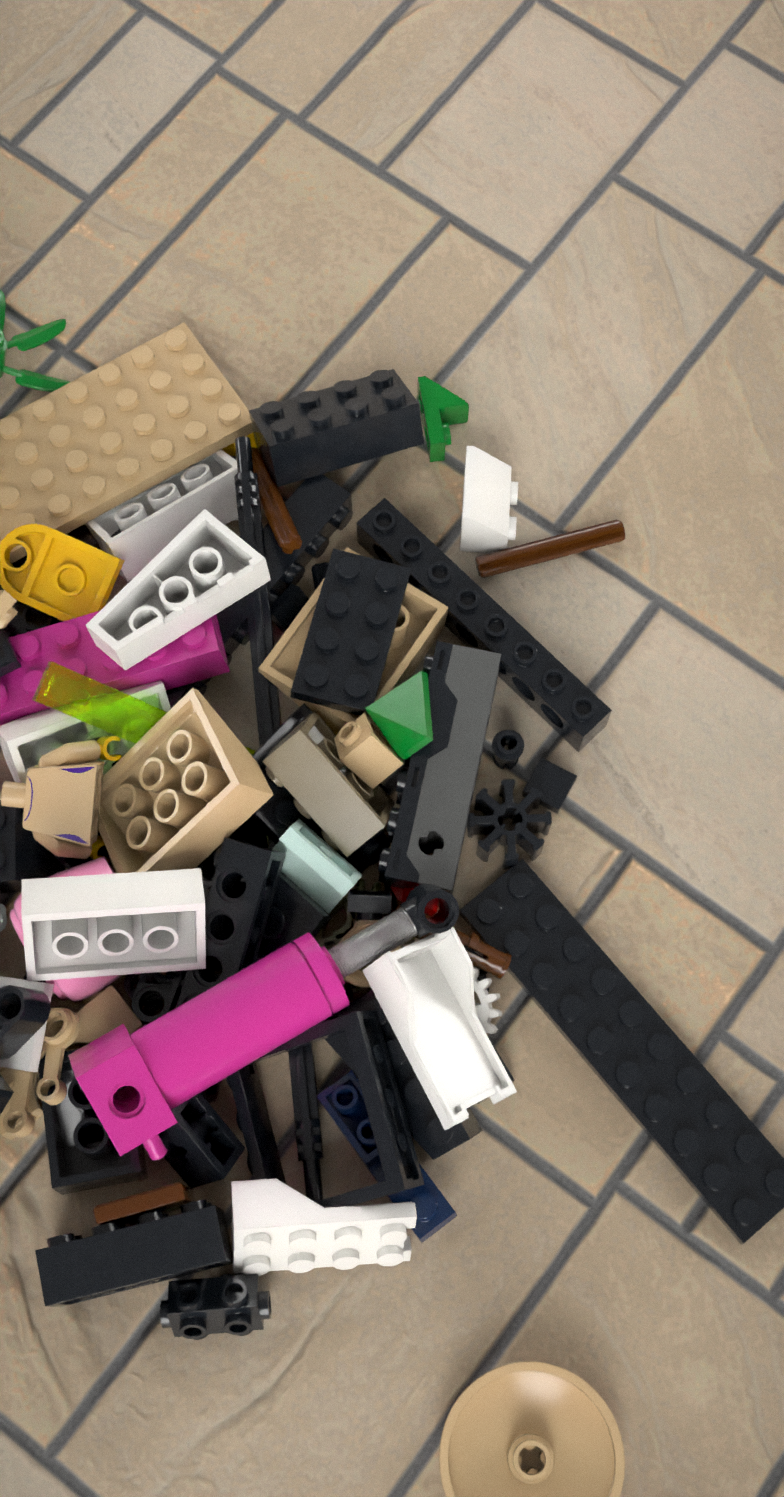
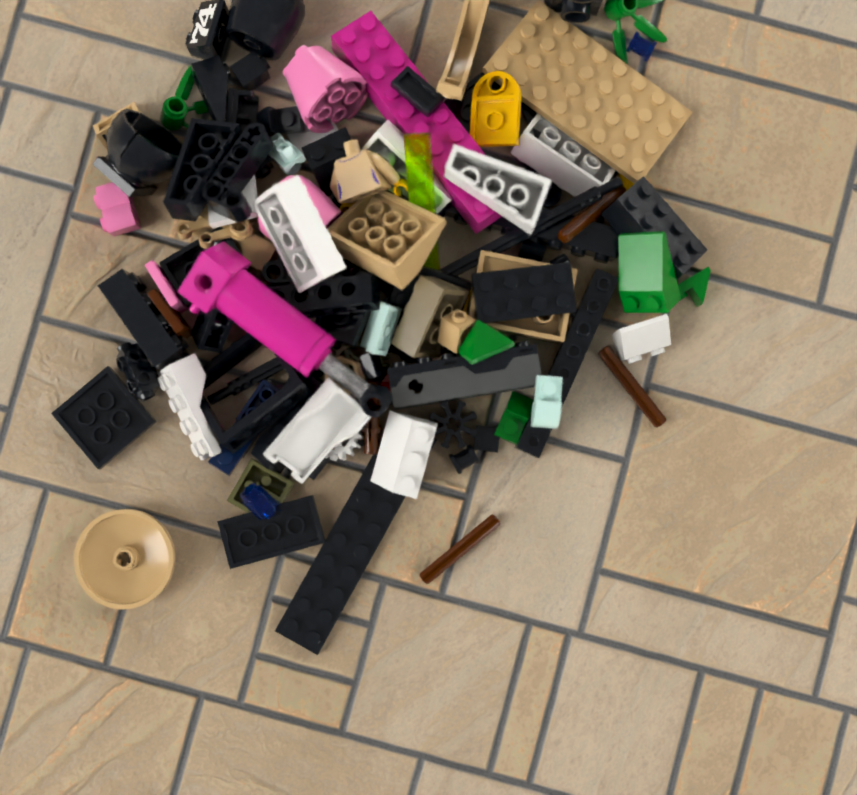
camera: 65 degrees right, 15 degrees up
(58, 352) = (641, 46): none -> clear blue bush
(89, 1194) = (166, 286): none -> bright pink tile
(270, 1403) = (103, 417): none -> black plate
(393, 455) = (646, 273): none -> slope
(479, 1168) = (273, 482): none -> olive brick
(515, 748) = (499, 401): black pin -> none
(519, 1176) = (258, 501): none -> clear blue brick
(530, 908) = (403, 453): none -> white slope
(542, 657) = (547, 402): none -> light aqua brick
(542, 737) = (514, 417): none -> green slope
(569, 828) = (464, 459): none -> black bush
(574, 1184) = (290, 529): none -> black plate
(709, 892) = (459, 549): none -> reddish brown axle

